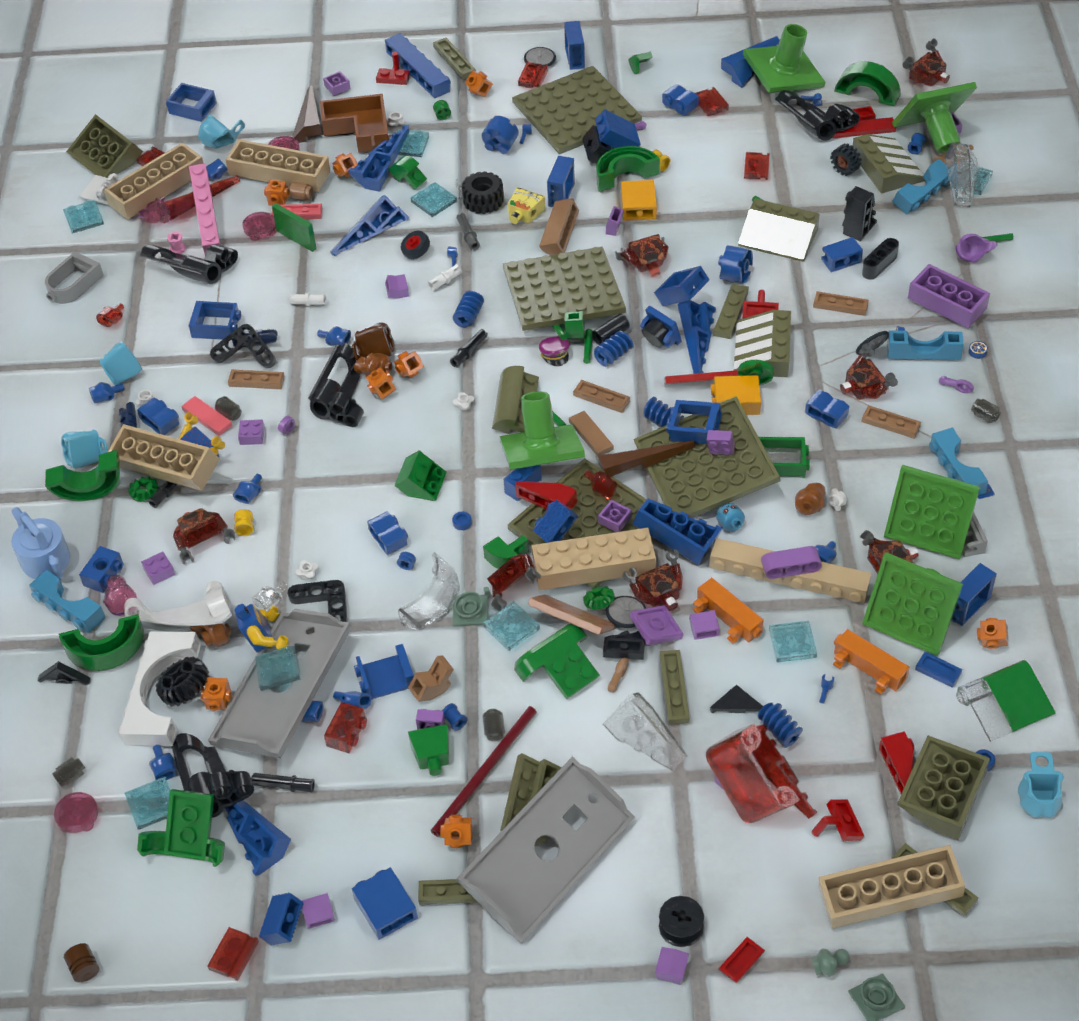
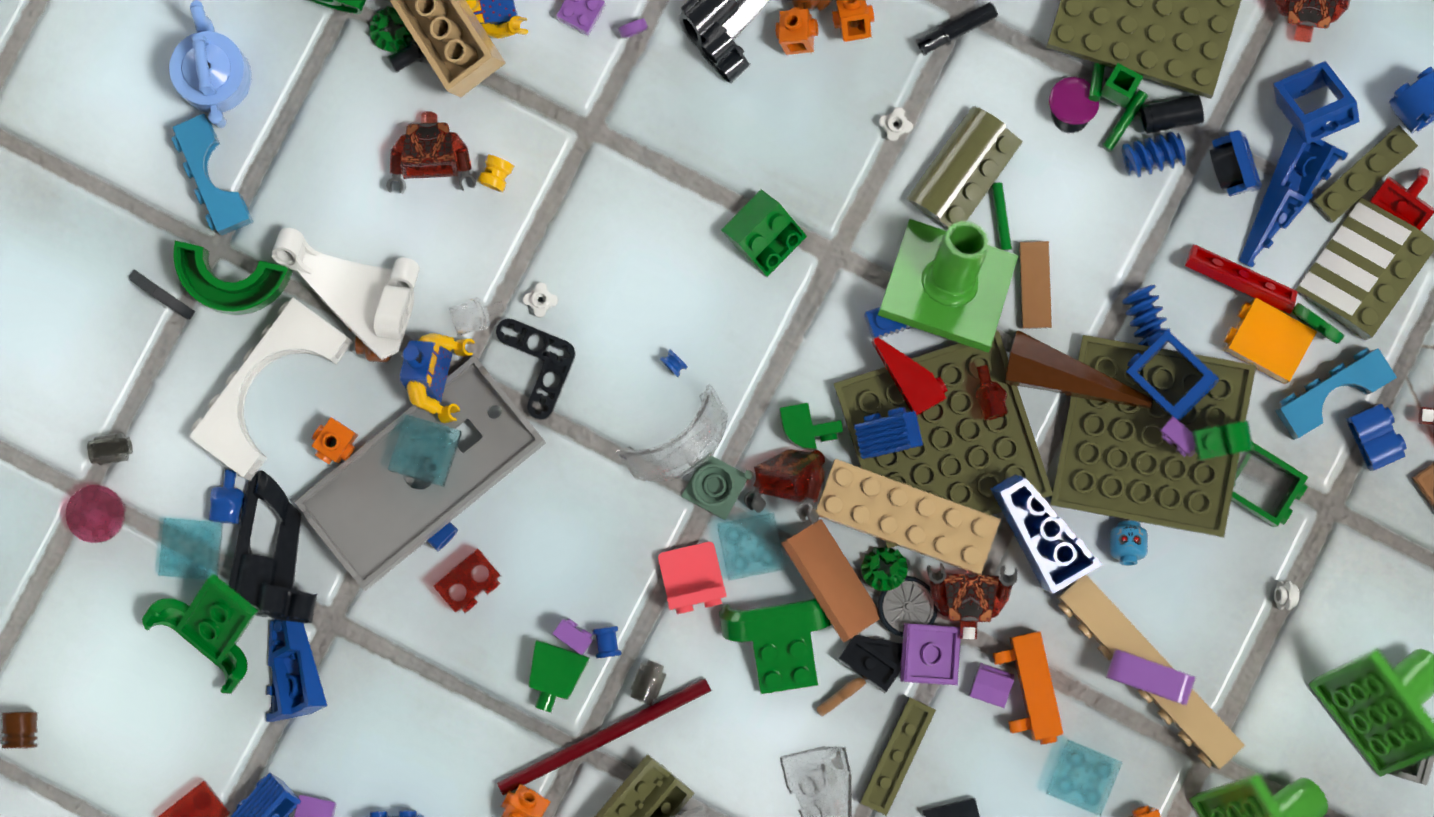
camera: 25 degrees right, 35 degrees up
(100, 567) = (261, 147): blue brick -> none
(117, 594) = (282, 203): clear pink hair -> none
(158, 568) = (352, 183): medium lavender piece -> none
(182, 681) = (292, 415): black gear -> none
(248, 490) = (530, 113): blue piece -> none
(283, 782) = (357, 613): black axle -> none
(354, 698) = (498, 544): blue piece -> none
(385, 675) = (556, 525): blue panel -> none
(387, 532) = (673, 302): blue brick -> none
(432, 683) = (605, 577): medium nougat brick -> none
(462, 520) = (782, 334): blue tile -> none
(486, 658) = (692, 577): none -> coral bracket
(601, 396) = (1089, 225): medium nougat tile -> none
(614, 516) = (975, 461): medium lavender piece -> none
(745, 425) = (1222, 440): none -> green brick
(798, 386) = (1304, 412): none -> dark azure arch
(810, 499) = (1250, 577): dark orange head -> none
(826, 552) = (1210, 671): blue piece -> none
(878, 548) = (1287, 733): torso -> none

